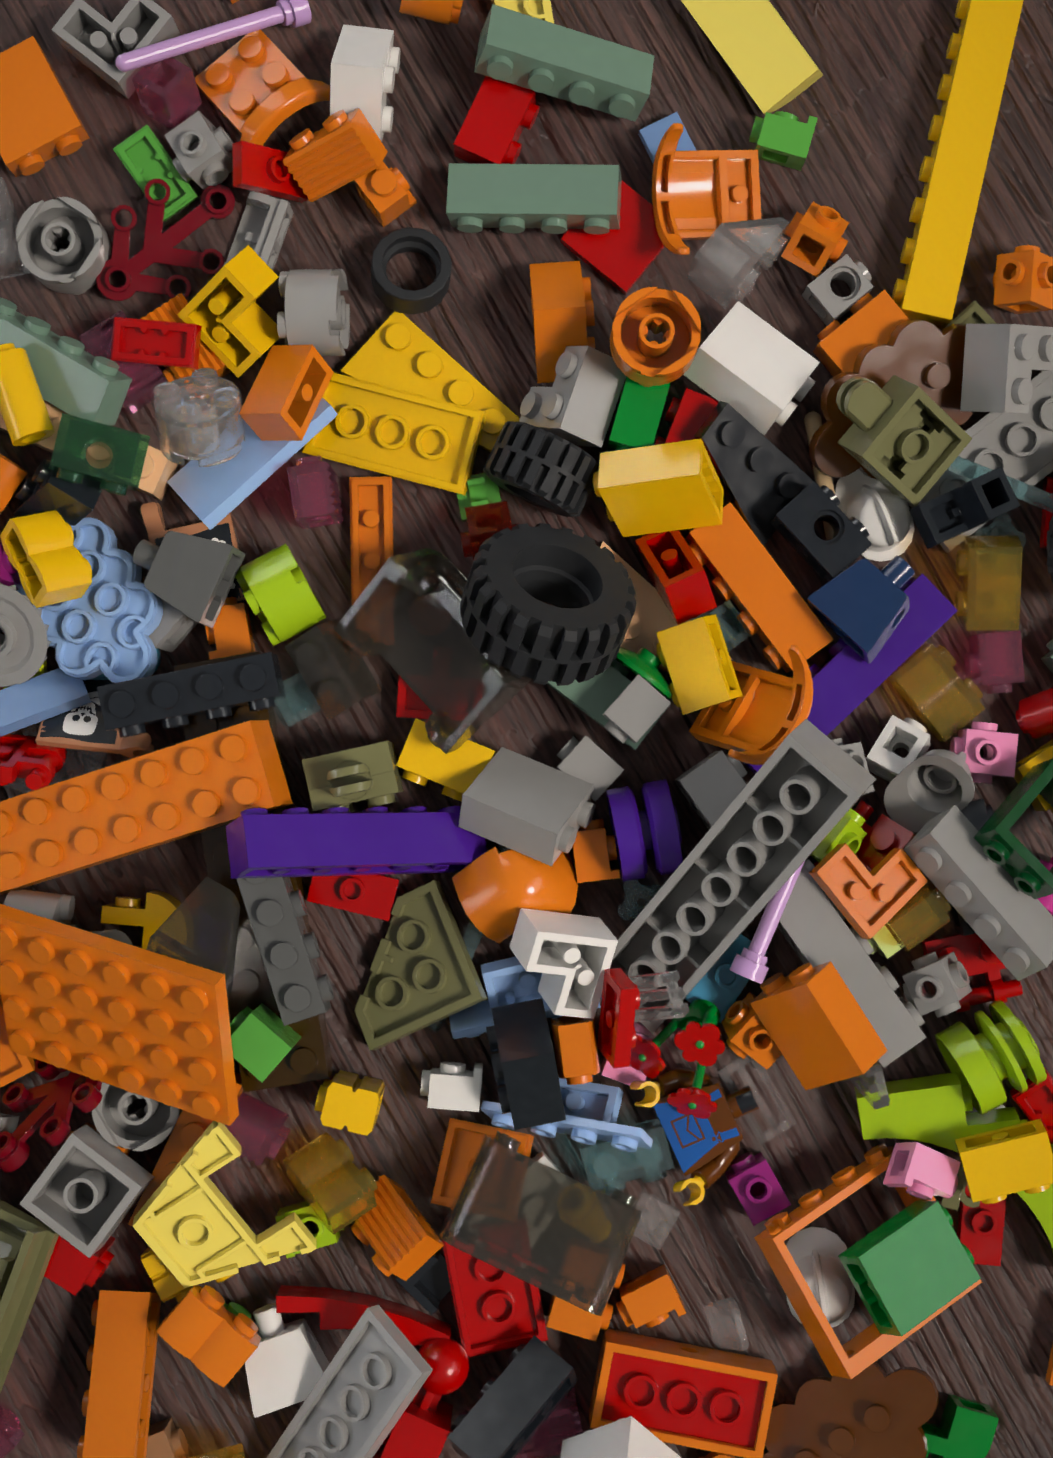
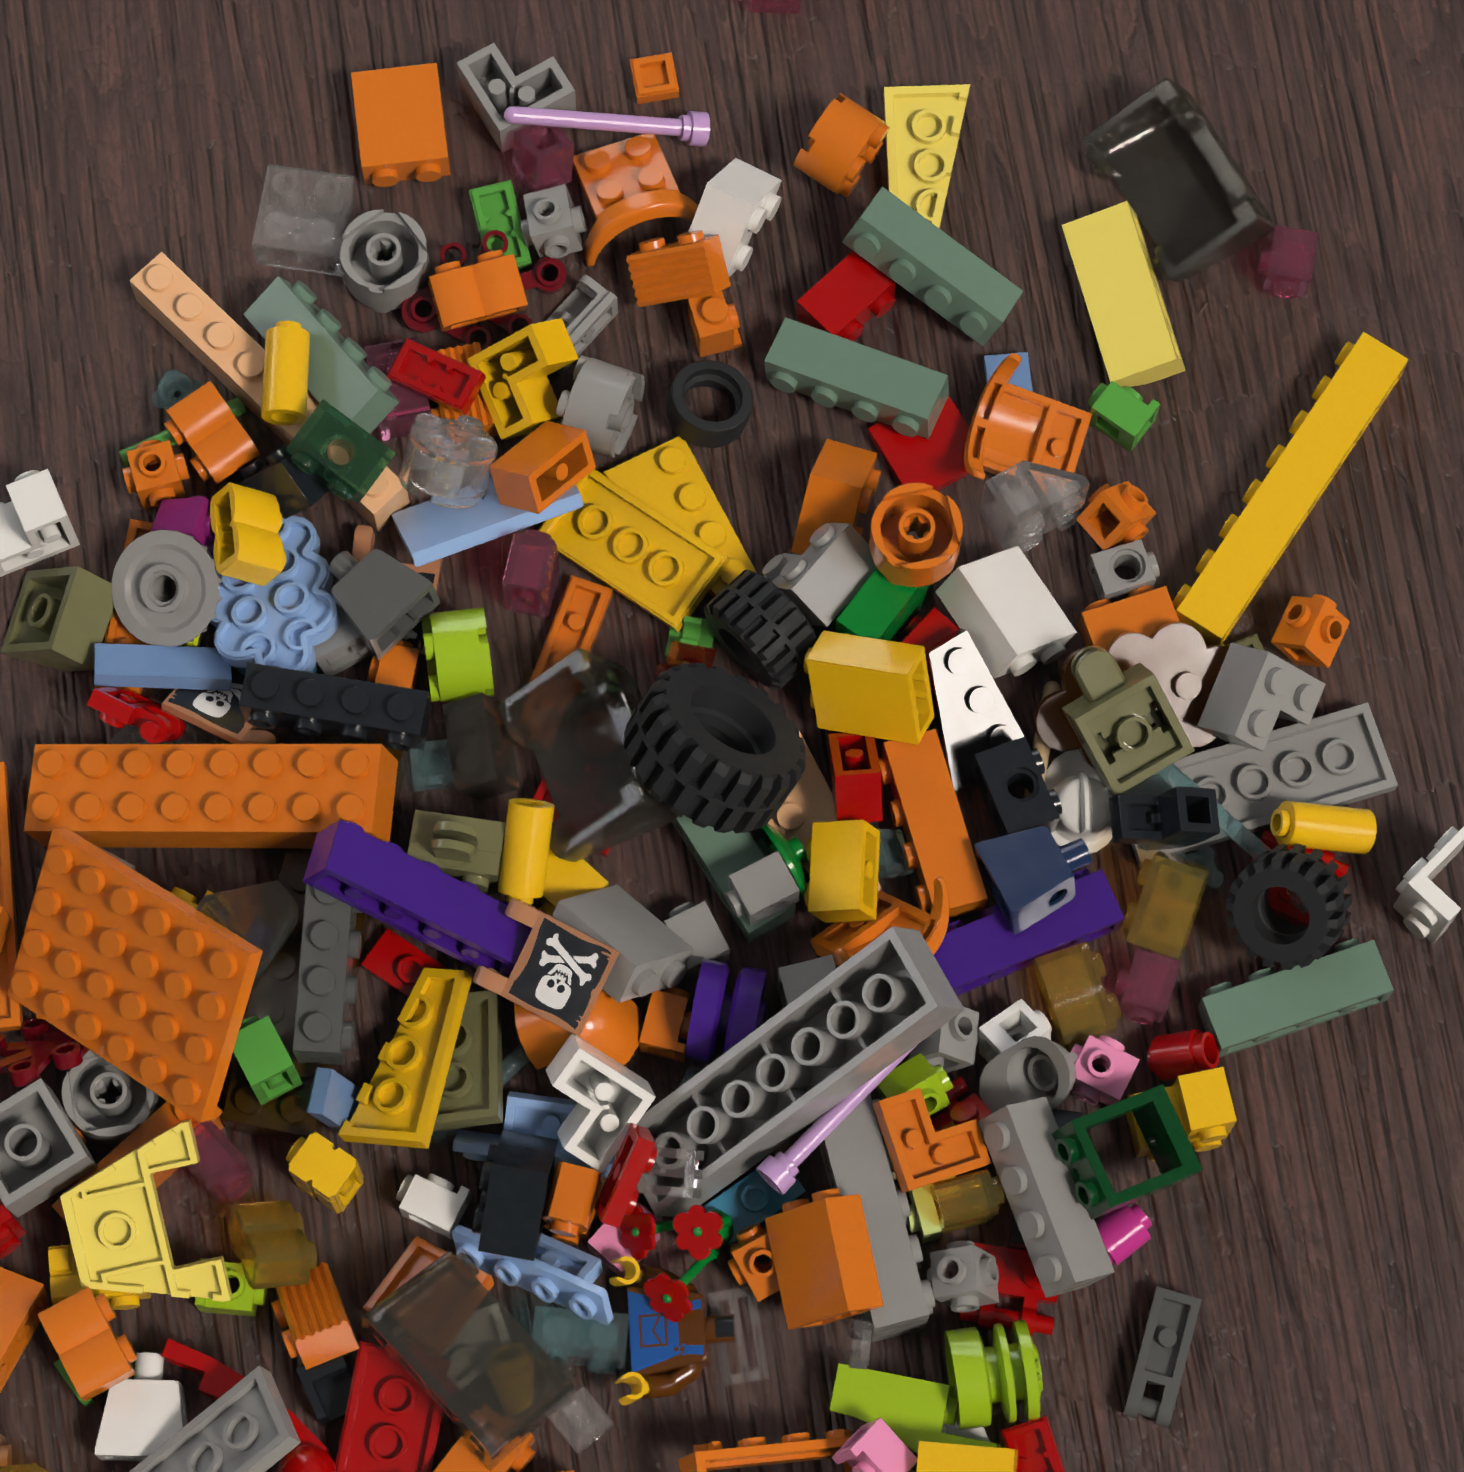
camera: 20 degrees right, 15 degrees down
(159, 244) = (477, 291): none -> orange brick
(263, 171) = (604, 261): red plate -> none
(335, 1037) = (332, 1098): none -> medium blue tile
(392, 995) = (409, 1082): none -> yellow wing
(413, 756) = (525, 849): none -> yellow brick
(486, 859) = (556, 970): none -> flag
(756, 1187) = (701, 1418): magenta brick -> none

